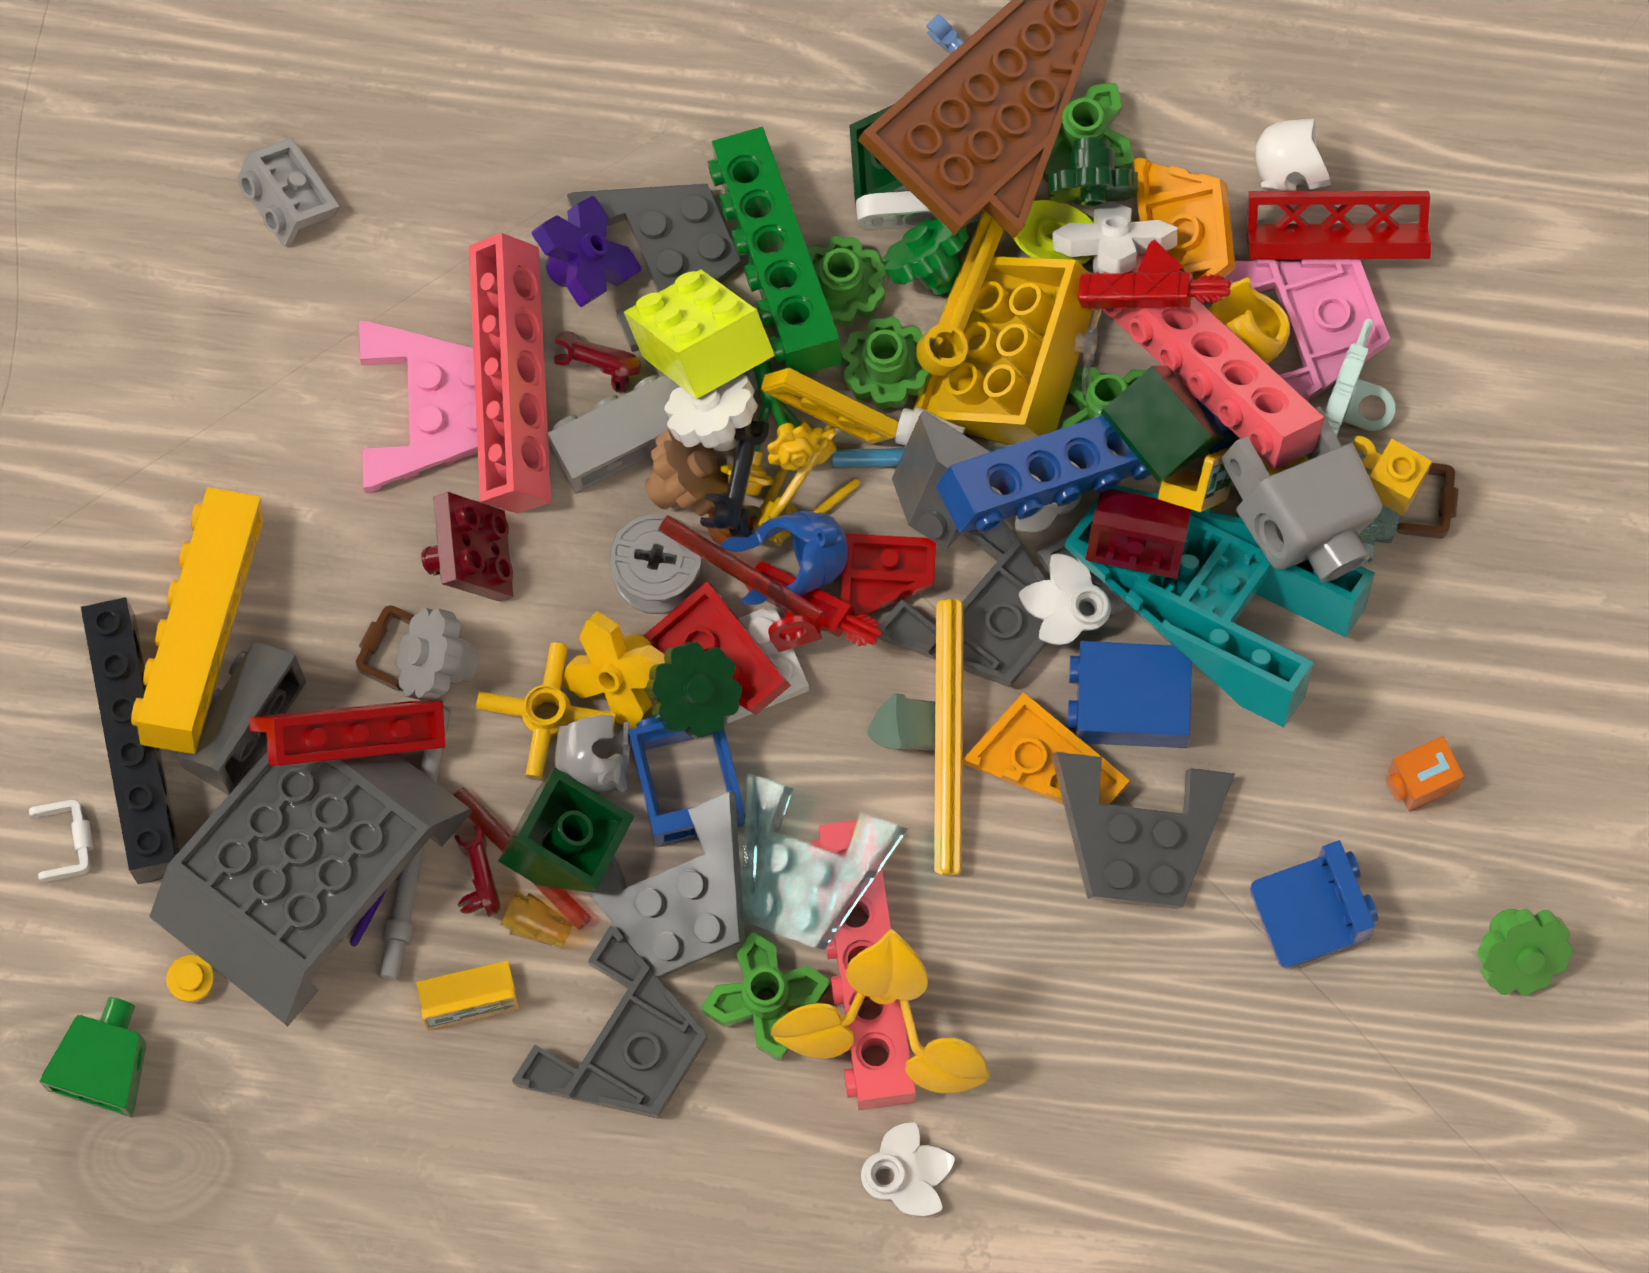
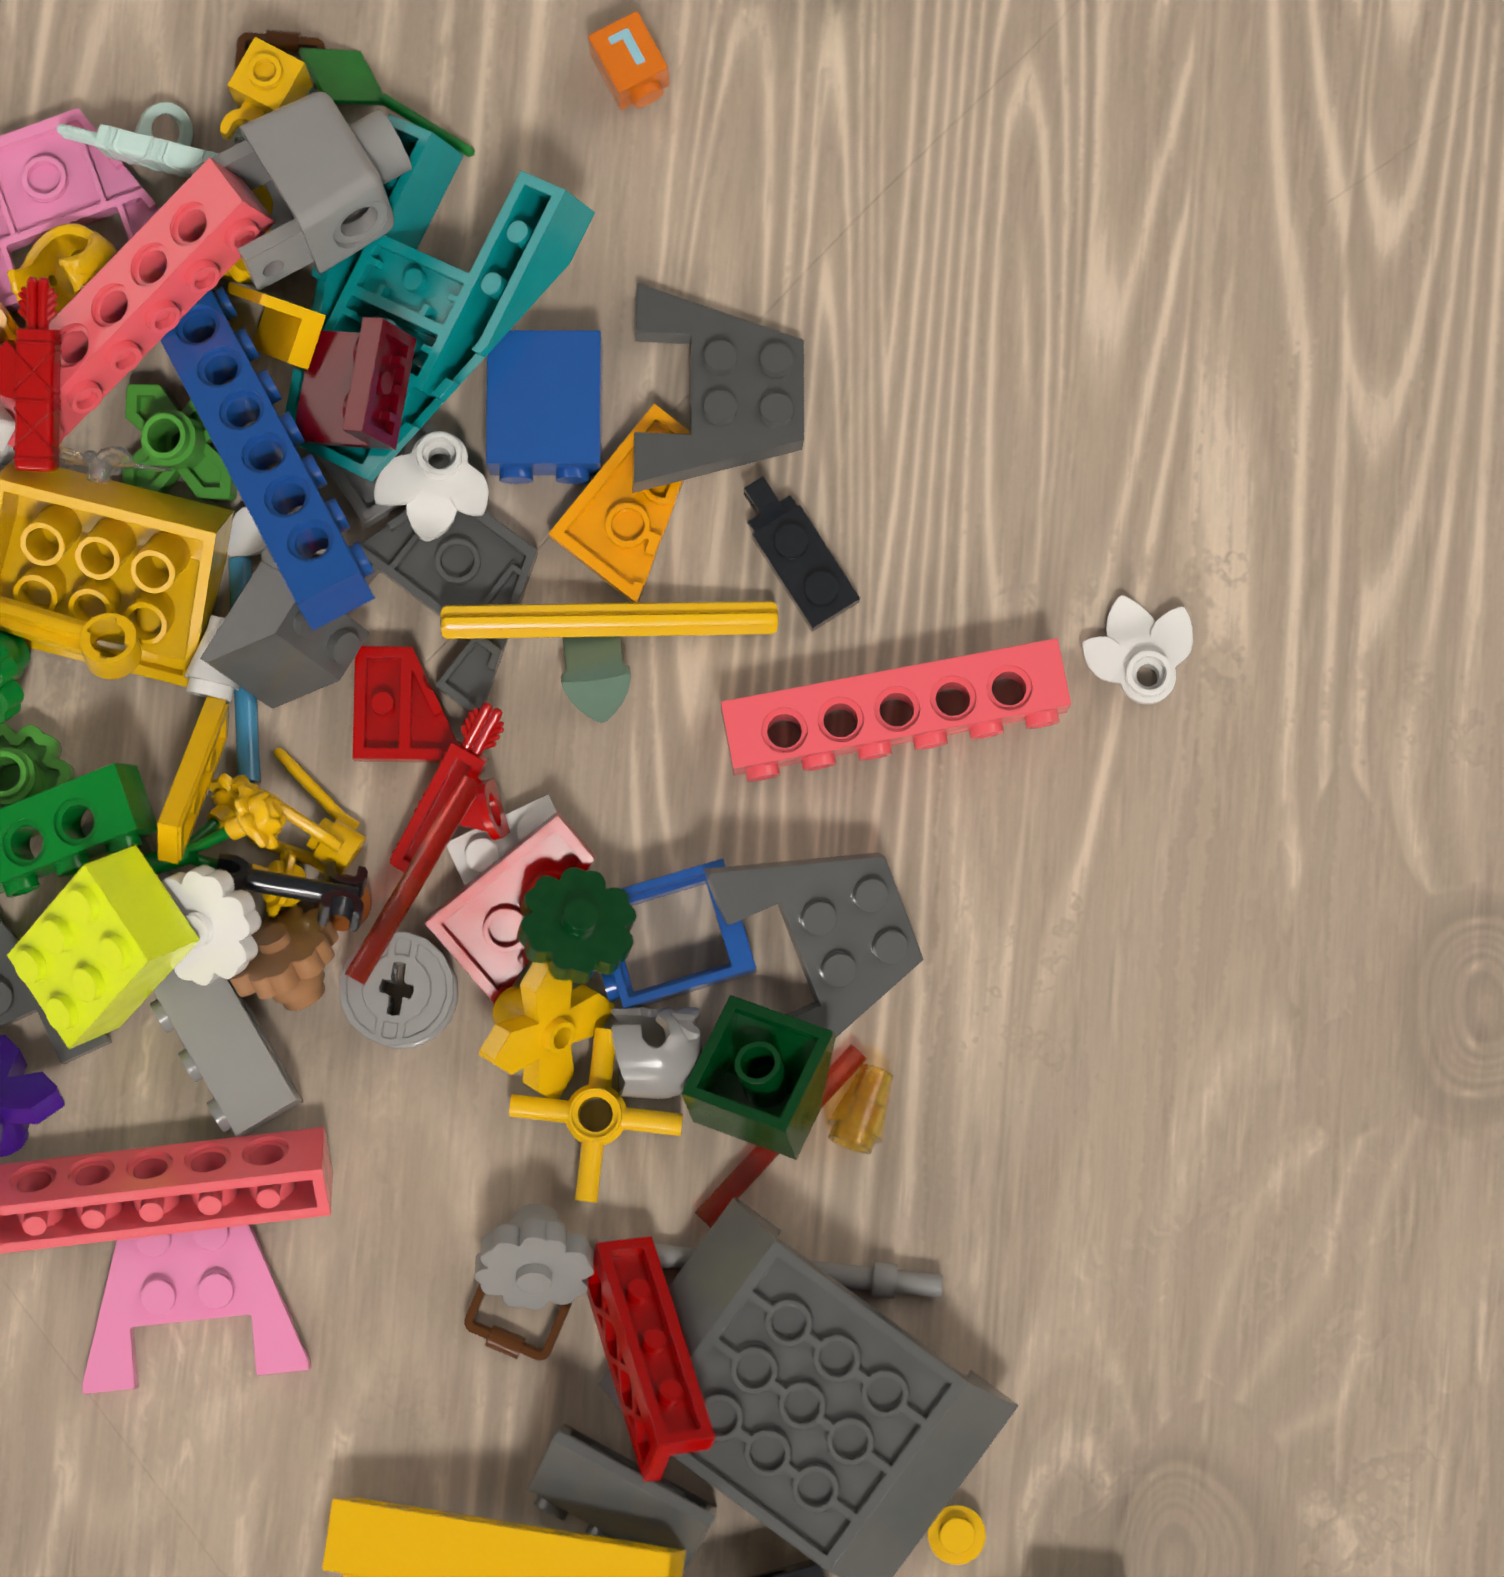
camera: 95 degrees left, 10 degrees up
(467, 995) = (958, 1188): yellow panel -> none
(470, 547) = (391, 1223): dark red plate -> none
(486, 892) = (829, 1174): dark red piece -> none
(610, 360) = (129, 1064): dark red piece -> none
(637, 1053) = (1017, 975): dark grey wing -> none
(740, 1002) = (970, 818): bright green plant -> none
(800, 886) = (807, 792): clear light blue wing -> none
(818, 547) = (371, 790): blue hair -> none
(884, 363) = (124, 719): bright green plant -> none
(885, 973) = (949, 671): yellow plant -> none
(999, 895) = (798, 556): none -> black hinge
(1162, 422) = (216, 359): dark green slope -> none
(1315, 907) = (797, 185): blue bracket -> none
(1411, 548) = (350, 81): none -> green piece

